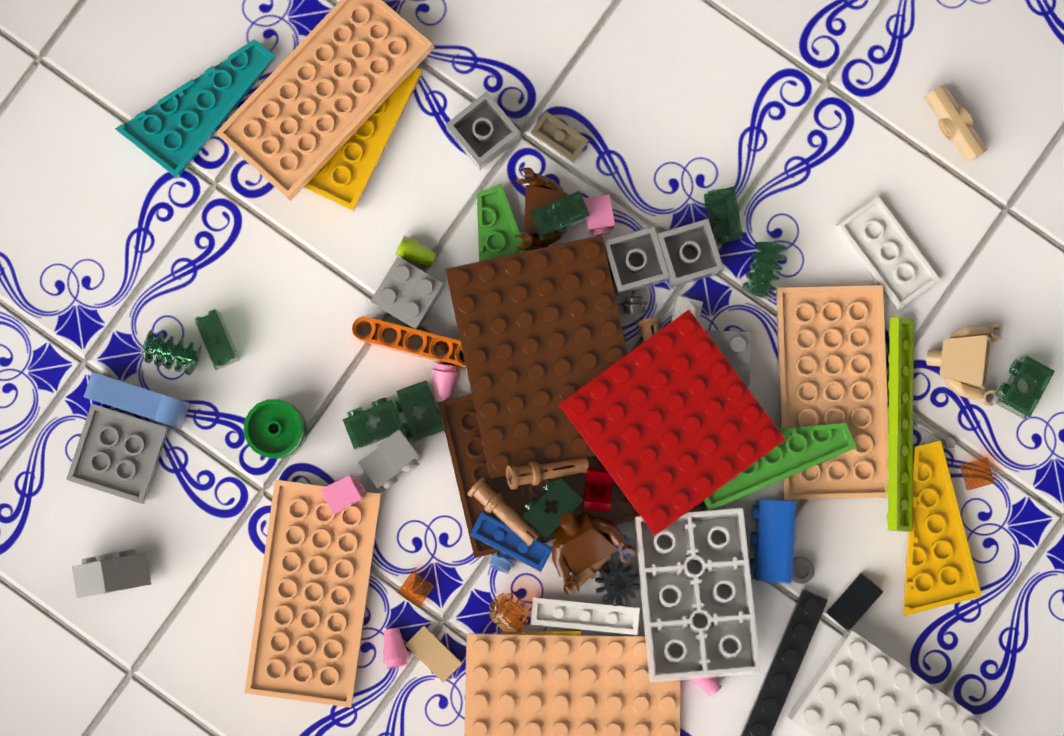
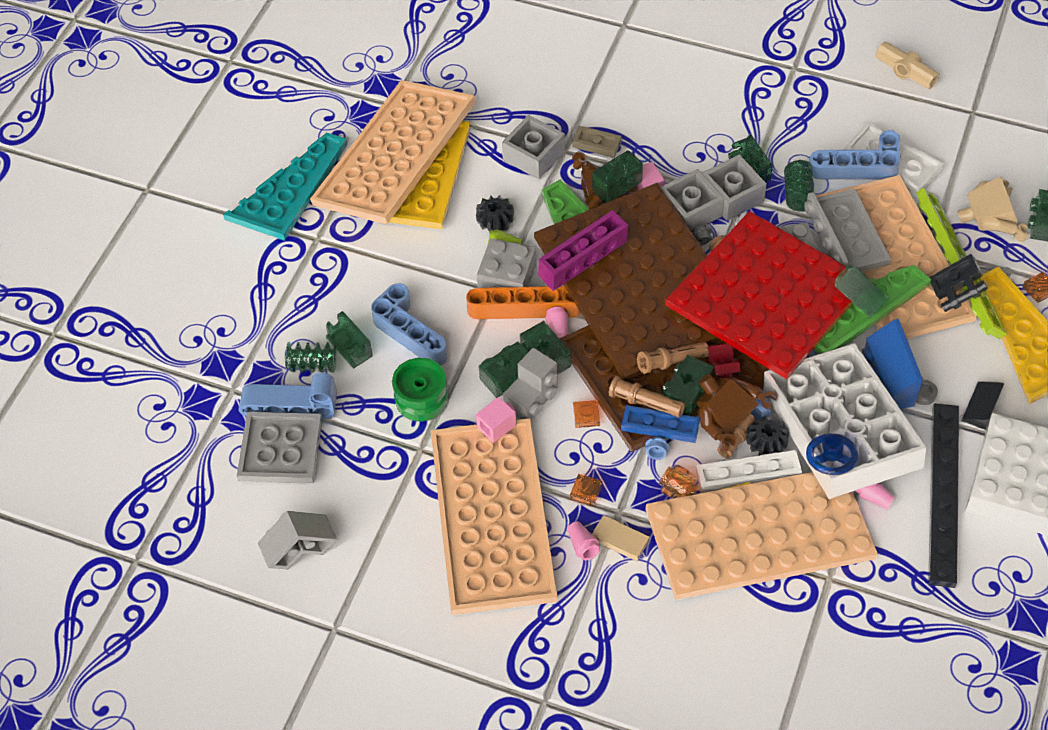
camera: 15 degrees left, 30 degrees down
(286, 343) = (391, 317): none -> medium blue beam
(418, 220) = (494, 213): none -> black gear
(442, 498) = (586, 414): none -> clear orange plate
(485, 323) = (582, 250): none -> magenta brick
(641, 656) = (832, 451): none -> clear blue piece
(769, 455) = (860, 290): none -> clear green hinge
(791, 354) = (847, 230): none -> light grey bracket
(839, 253) = (826, 162): none -> medium blue beam
(882, 454) = (956, 277): none -> black plate

